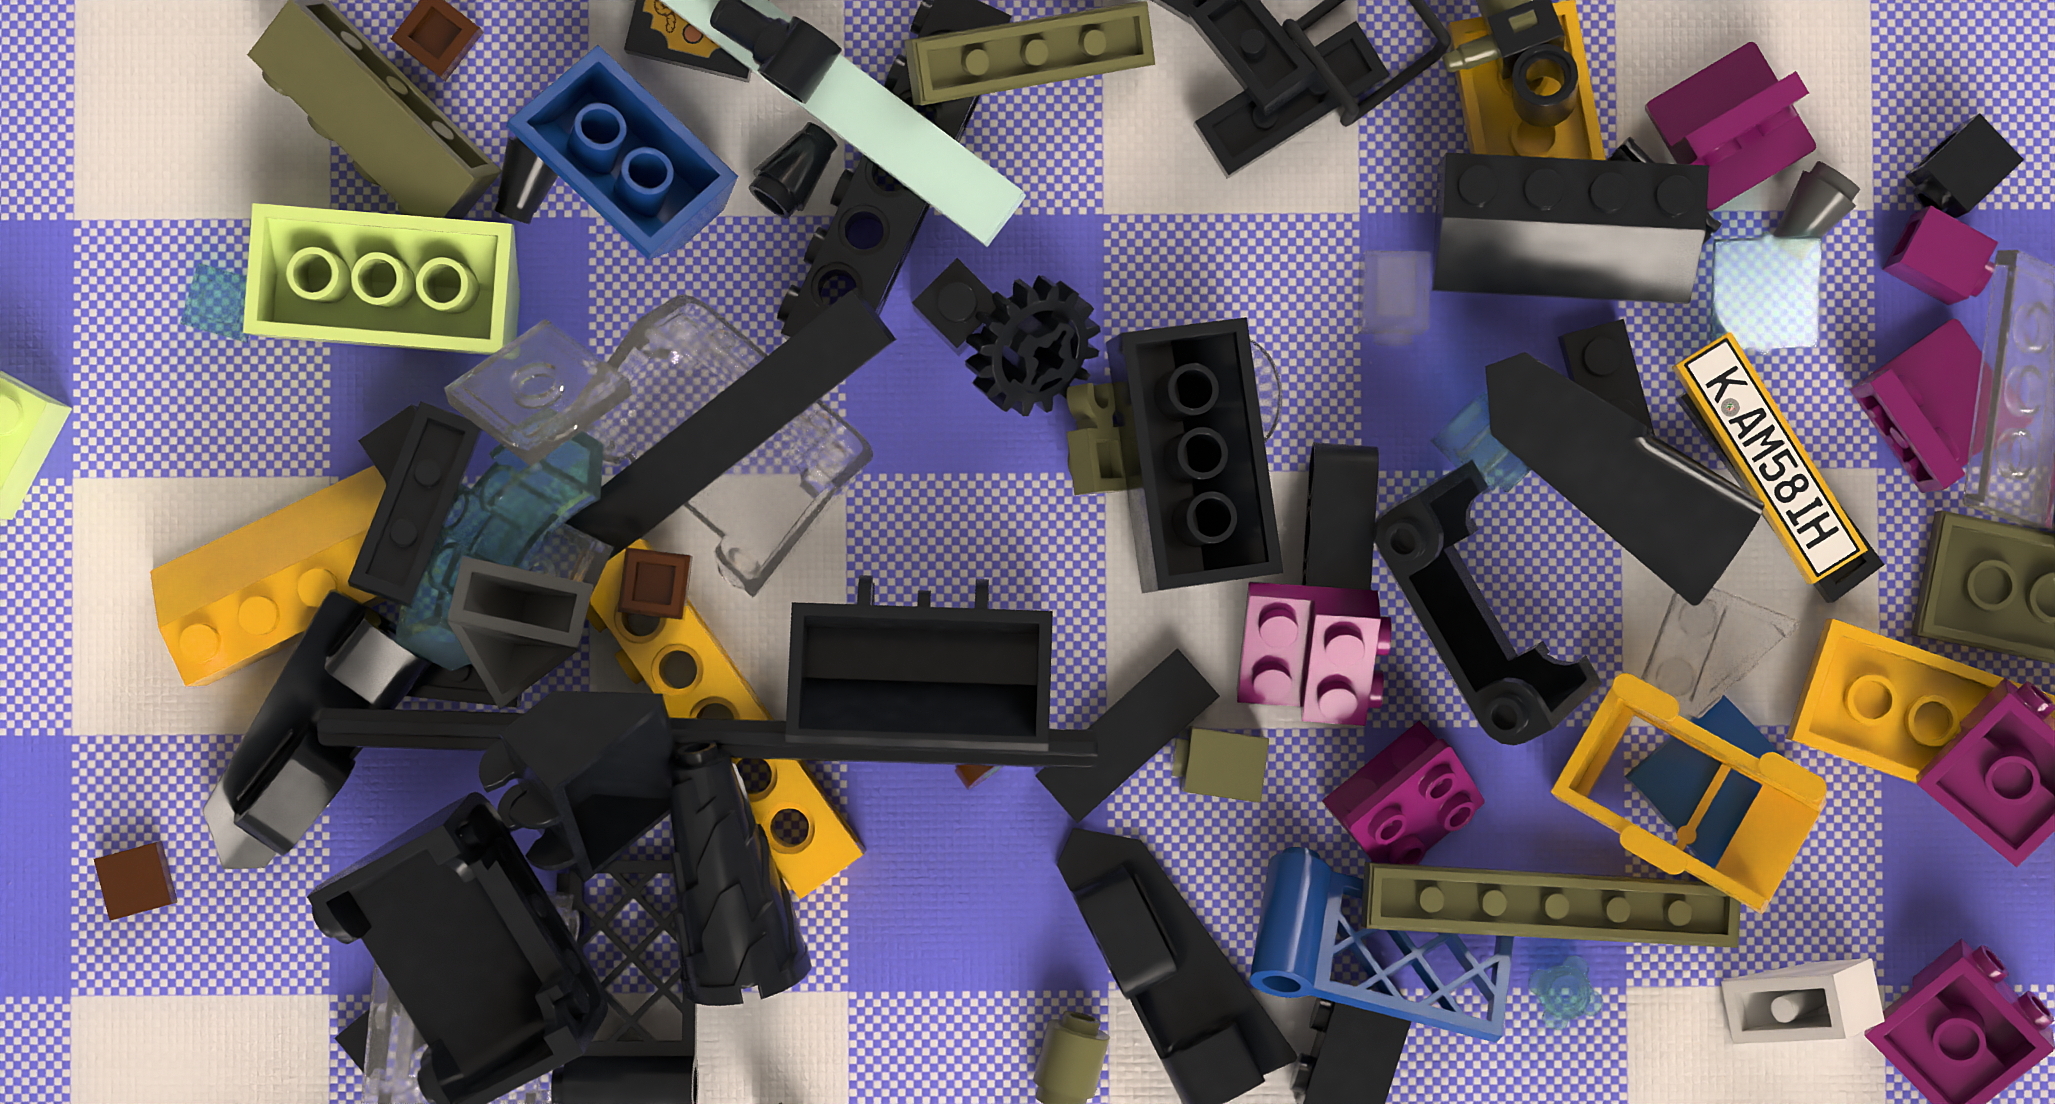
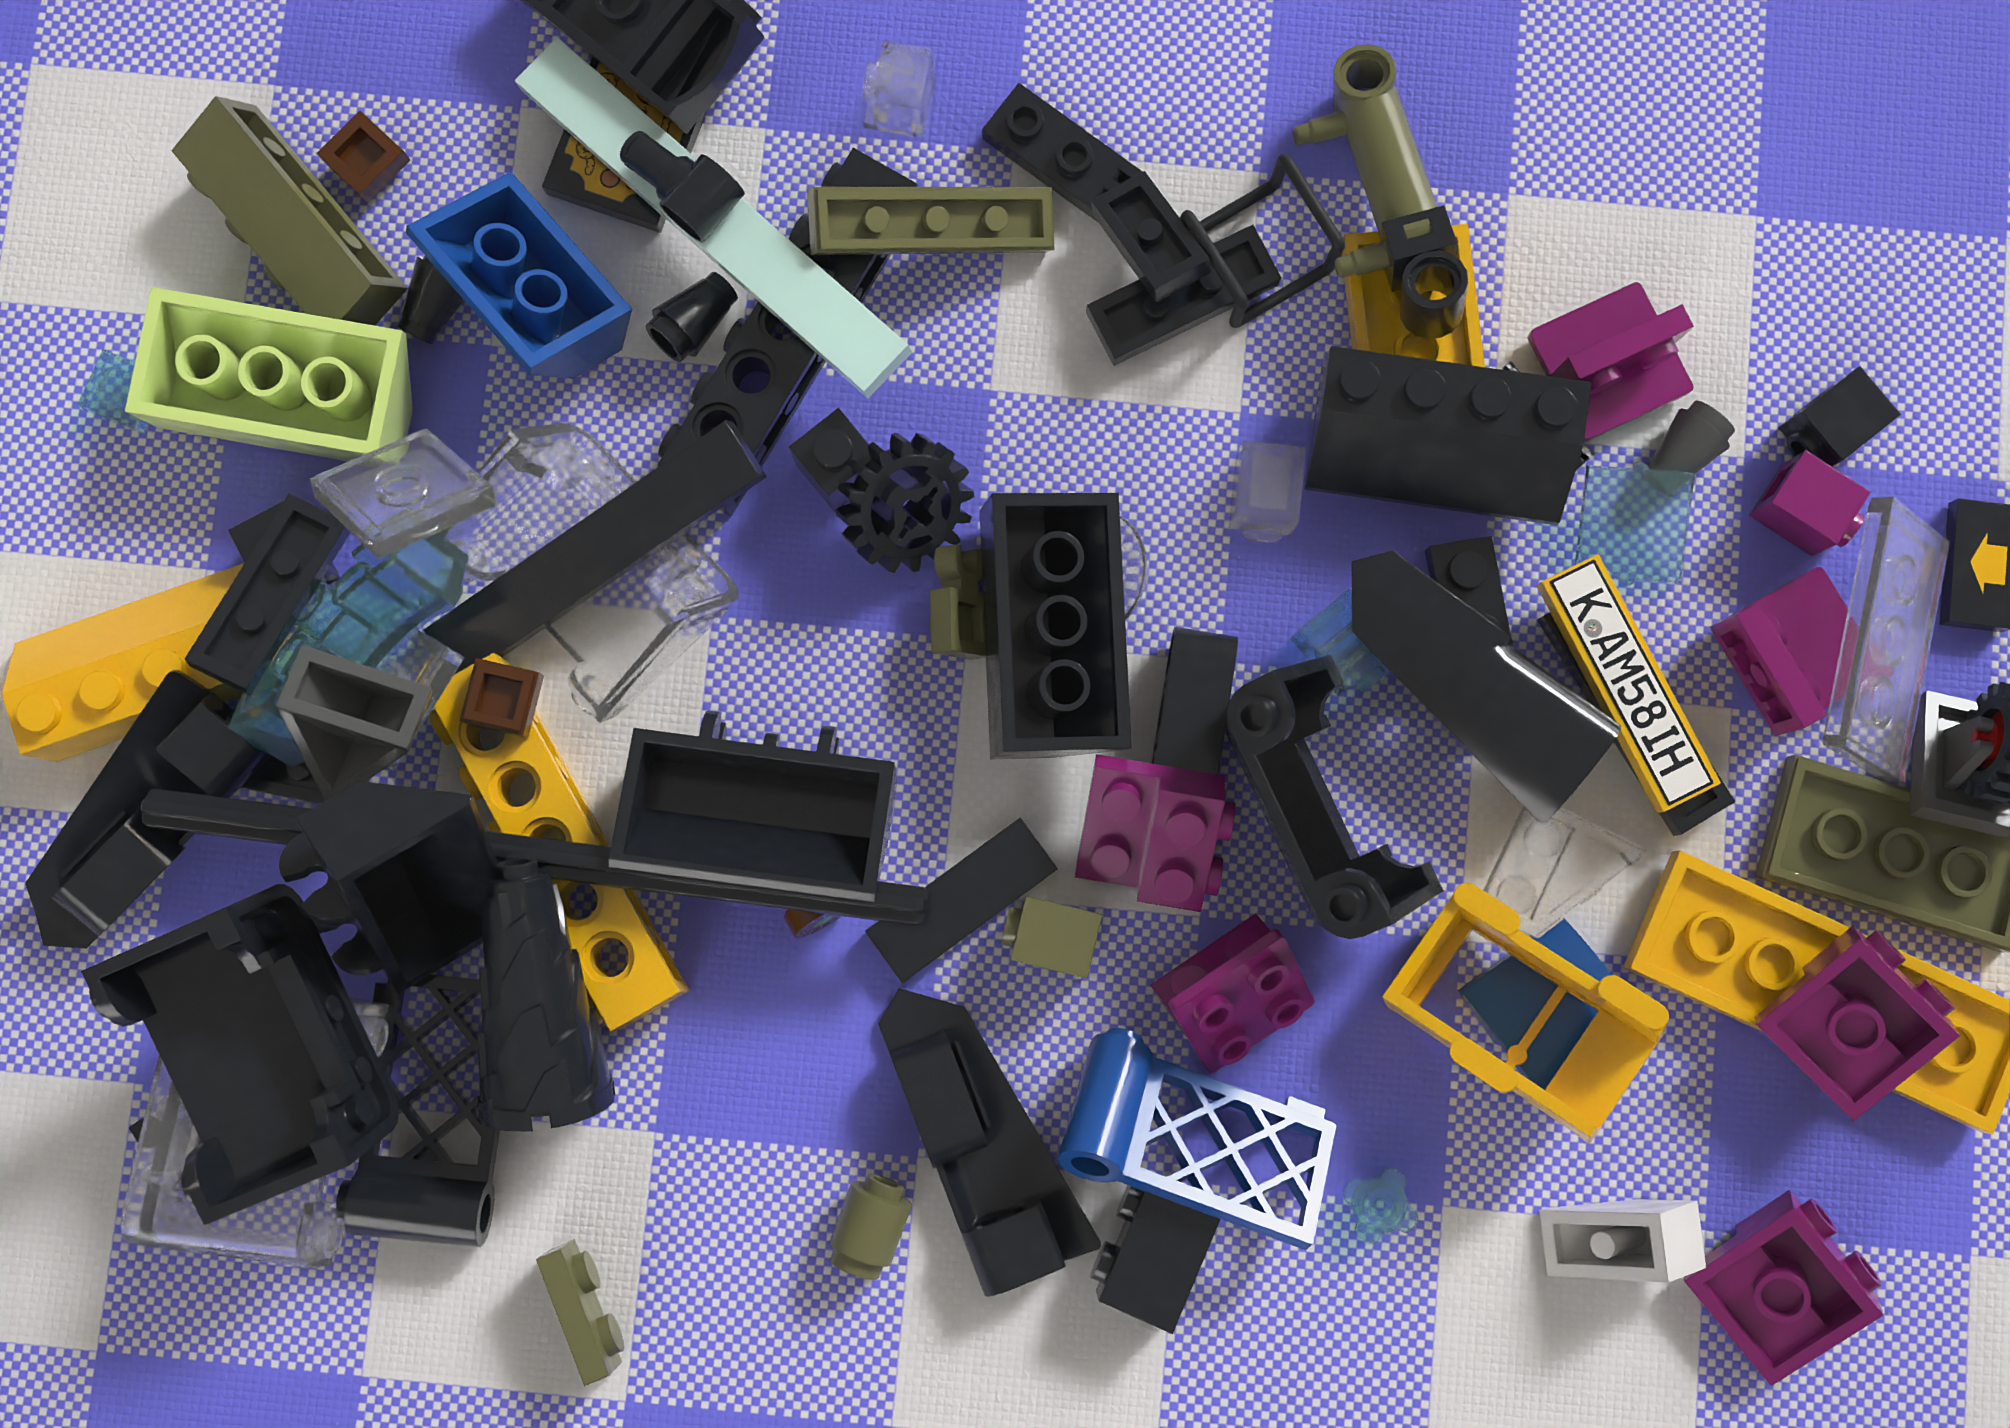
camera: 10 degrees right, 5 degrees down
(1547, 905) = (1370, 1113): olive tile -> none

